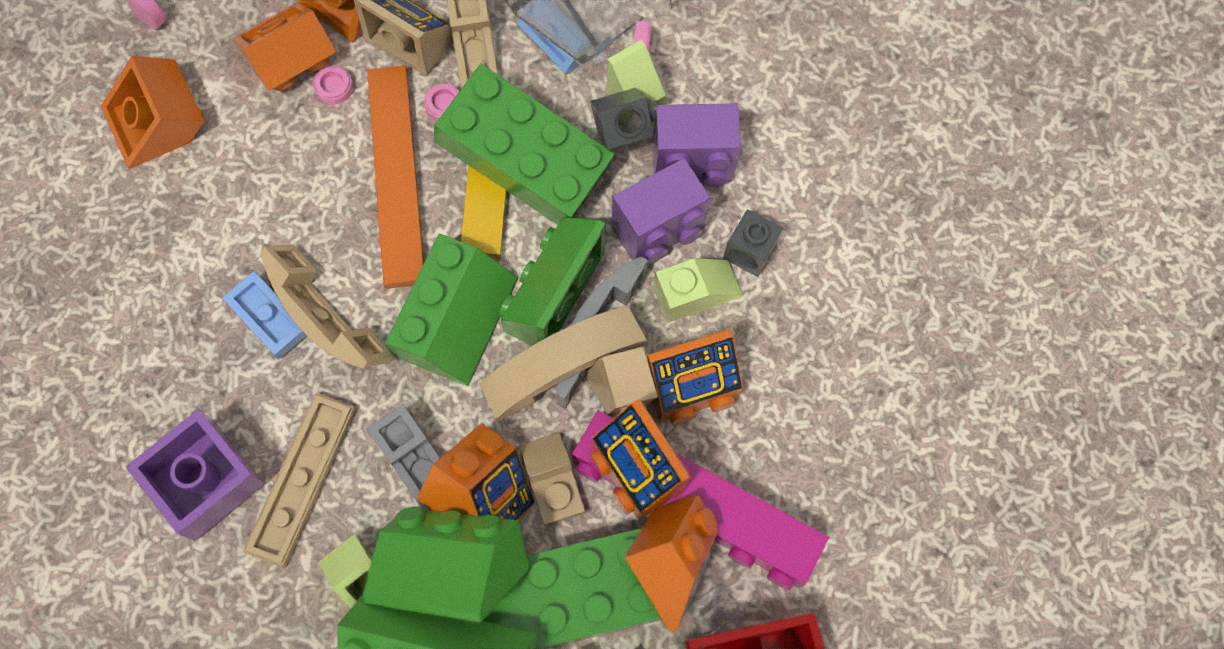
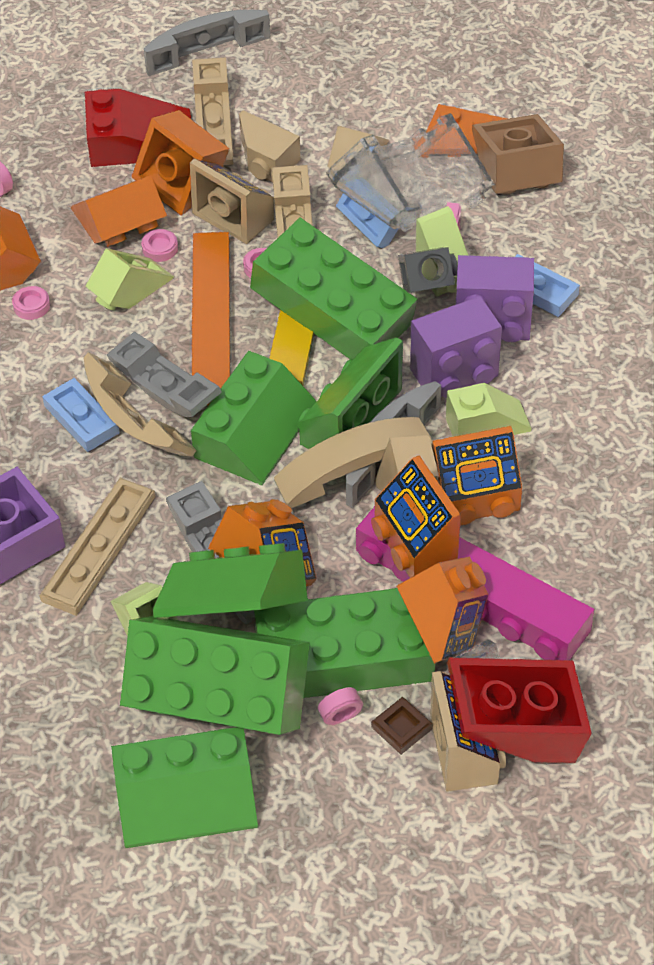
camera: 10 degrees right, 20 degrees down
(200, 169) = (31, 302): none -> bright pink tile
(300, 136) = (125, 279): none -> yellowish green slope
(351, 265) = (161, 378): none -> light grey slope
(552, 479) = (335, 561): tan slope -> none
(752, 243) = (542, 382): dark grey brick -> none
(755, 119) = (552, 290): none -> light blue plate

